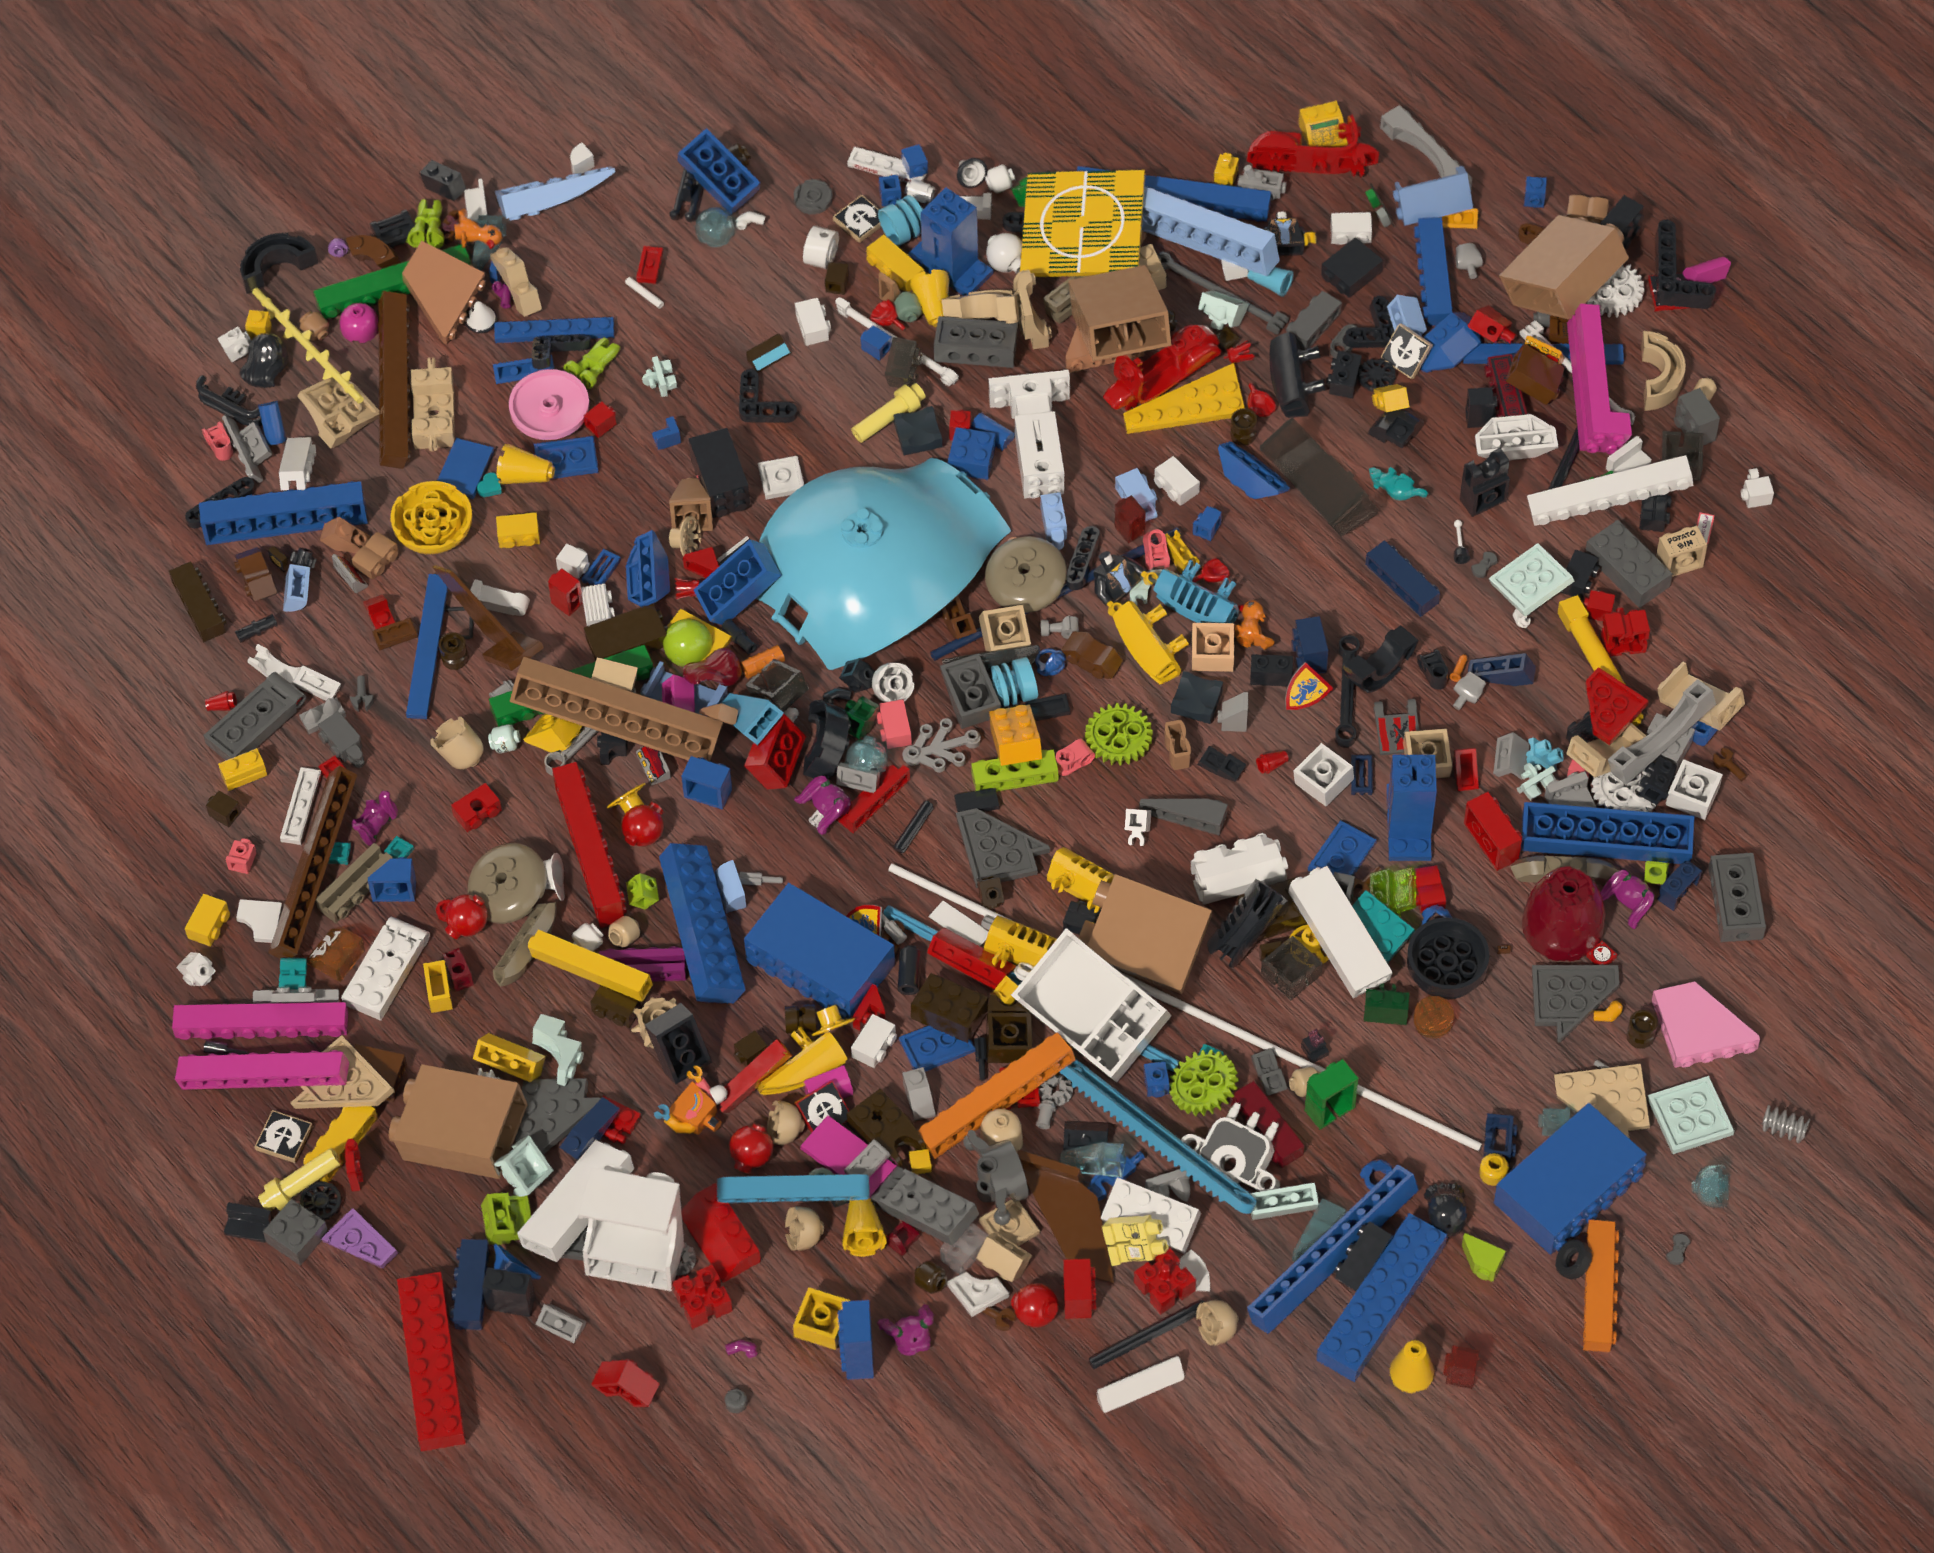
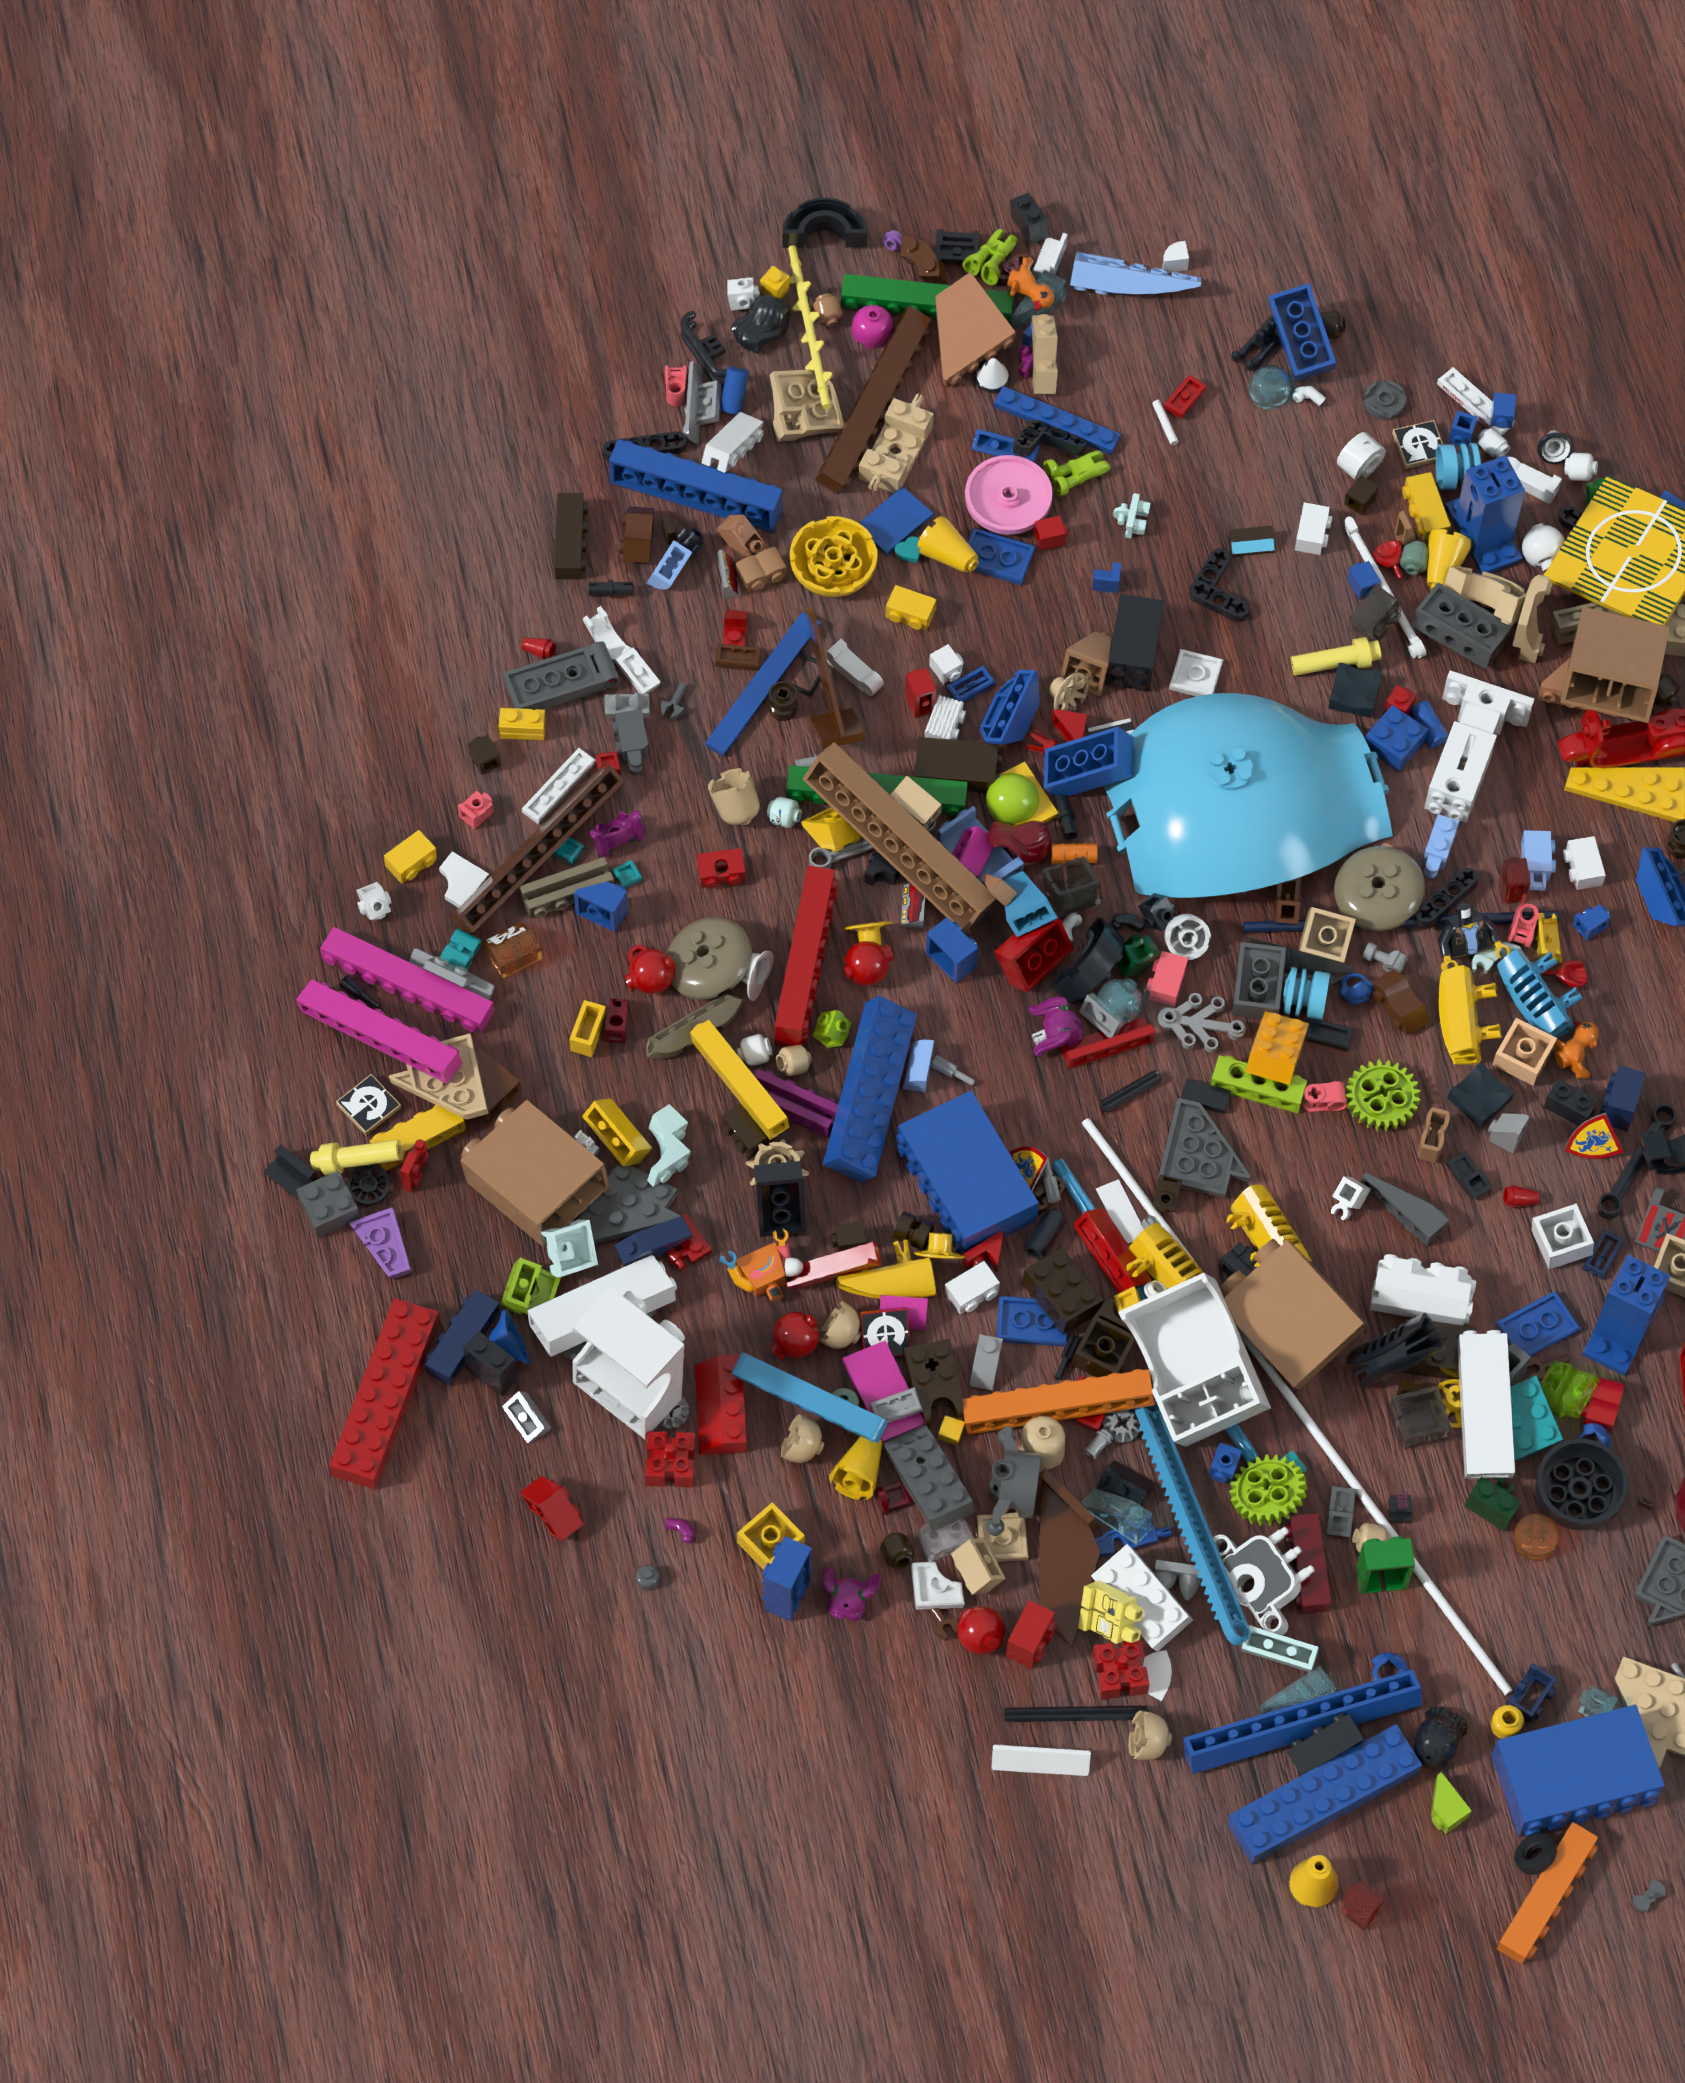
camera: 25 degrees right, 5 degrees up
(382, 976) = (541, 990): white hinge -> none

